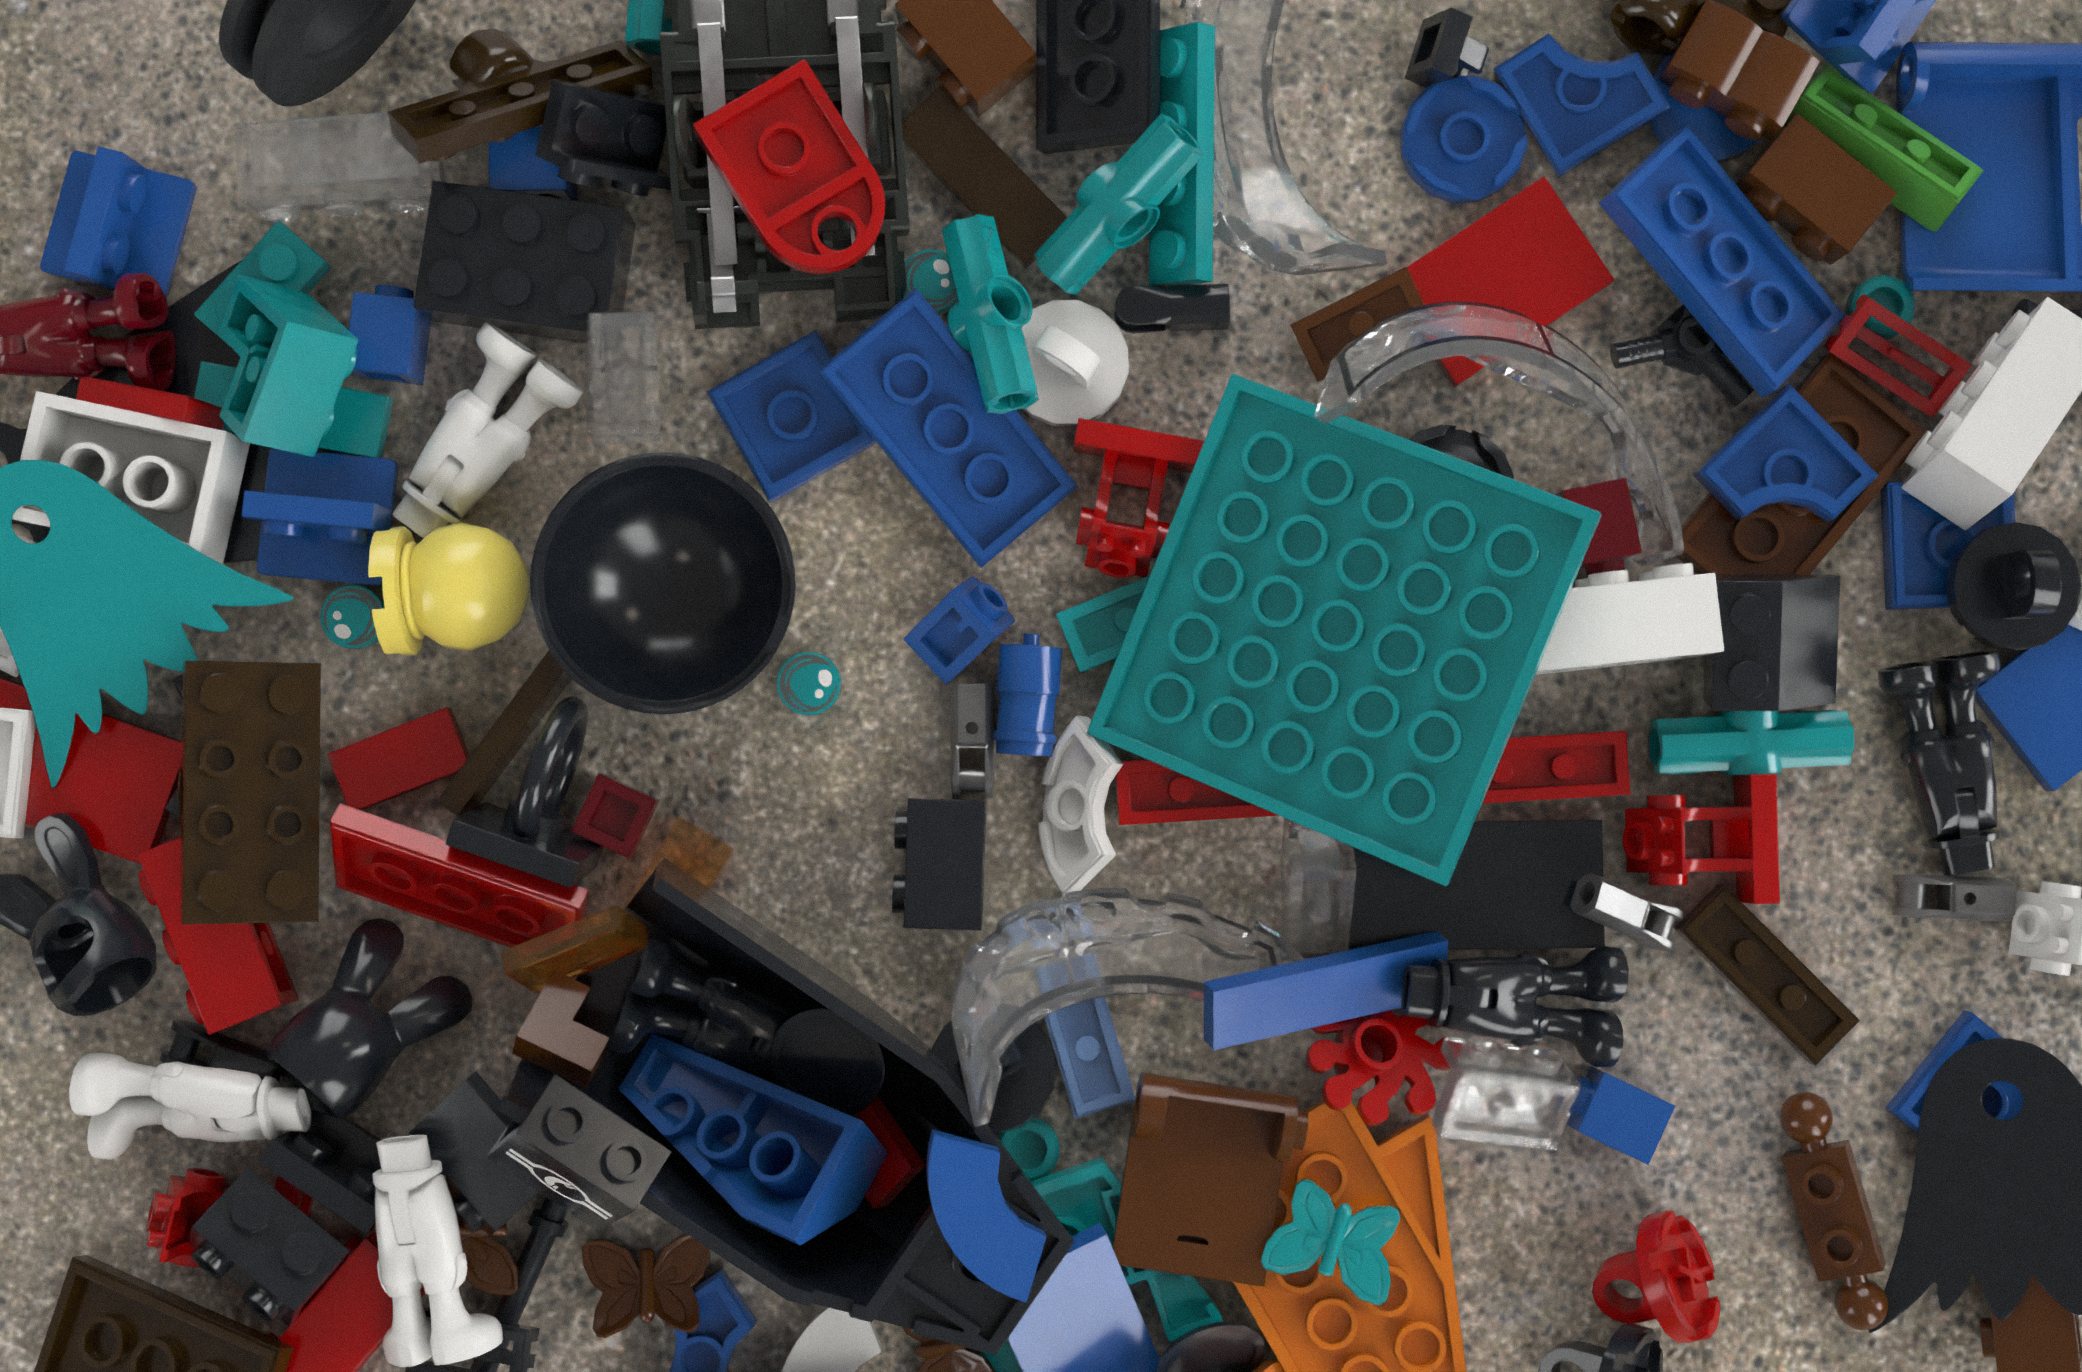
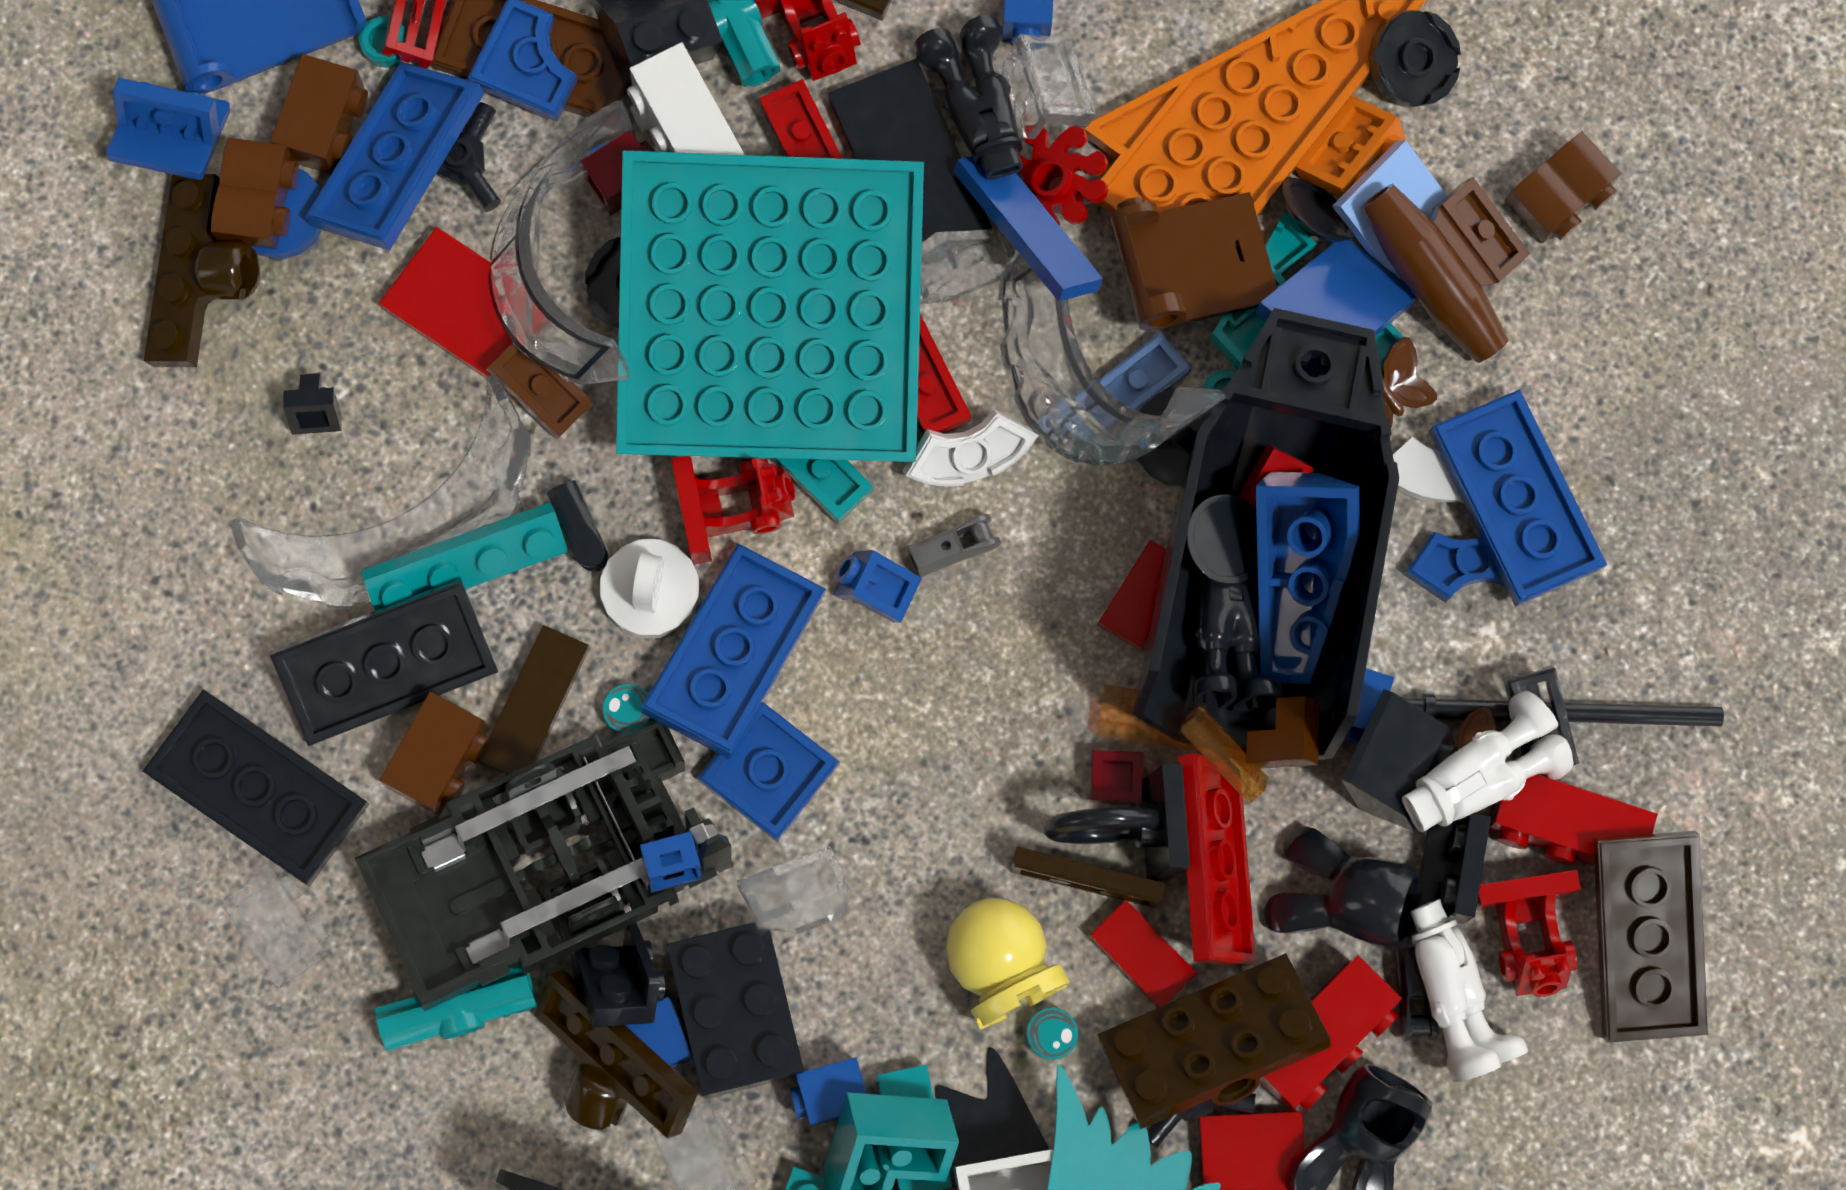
camera: 115 degrees left, 10 degrees down
(265, 1248) = (1534, 884): black bracket -> none
(321, 515) = (987, 1082): blue bracket -> none
(471, 447) = (889, 995): white piece -> none
(580, 1155) = (1367, 657): black panel -> none
(645, 1289) = (1442, 617): reddish brown piece -> none
(662, 583) = (935, 793): black piece -> none
(716, 221) = (670, 857): none -> blue piece
(794, 168) = (590, 819): red plate -> none
(809, 683) = (961, 679): teal tile -> none
(817, 928) = (1133, 604): none -> red tile
(942, 864) = (1051, 528): black brick -> none
(977, 1219) = (1284, 375): blue tile -> none
(990, 314) = (638, 647): teal piece -> none
(1027, 697) = (907, 516): blue piece -> none
(1118, 204) = (521, 586): teal piece -> none
(1338, 1236) = (1194, 158): teal piece -> none
(1463, 139) = (372, 371): blue tile -> none
(1579, 104) = (316, 300): blue tile -> none
(1625, 911) = (886, 52): flat silver bar -> none
(1911, 161) = (267, 72): bright green slope -> none

